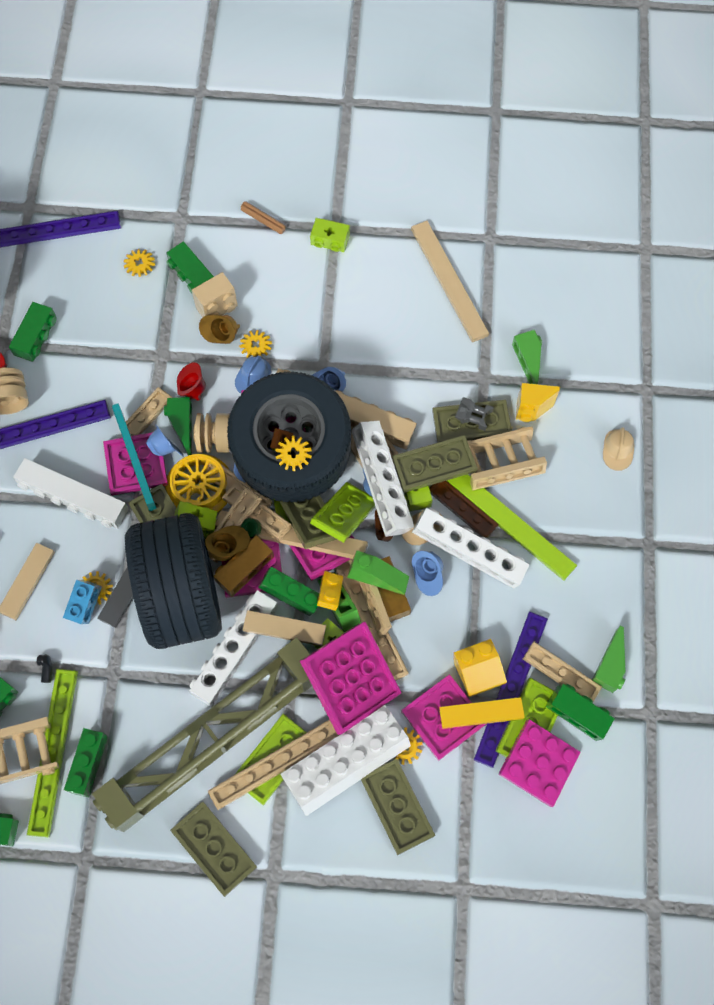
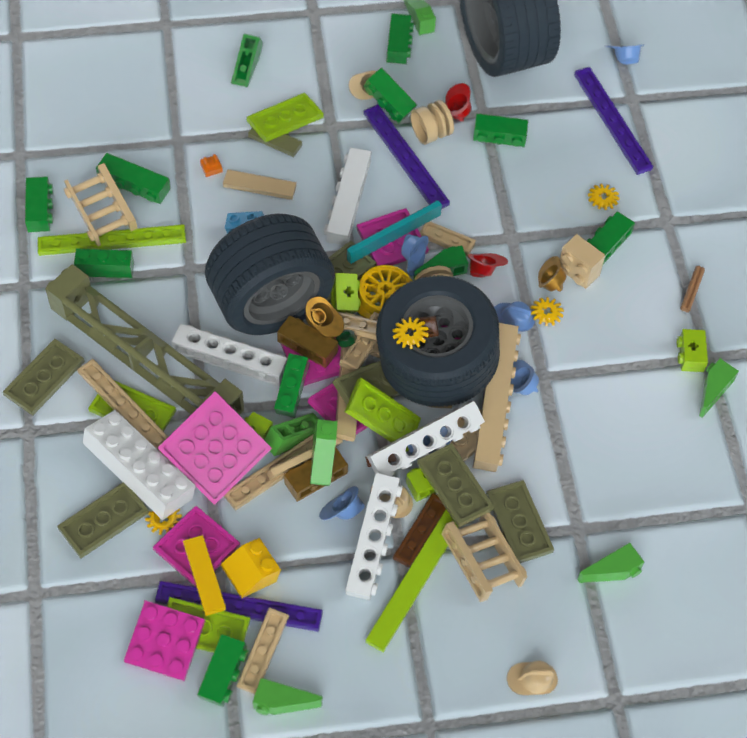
camera: 75 degrees right, 10 degrees down
(45, 661) = (188, 215): black arm -> none
(284, 628) = (253, 386): tan tile -> none
(330, 590) = (298, 416): yellow plate -> none
(368, 227) = (718, 380): none -> bright green slope
(450, 281) = (680, 475): tan tile -> none
(465, 411) = (529, 510): dark grey piece -> none
(535, 401) = (556, 574): yellow slope -> none

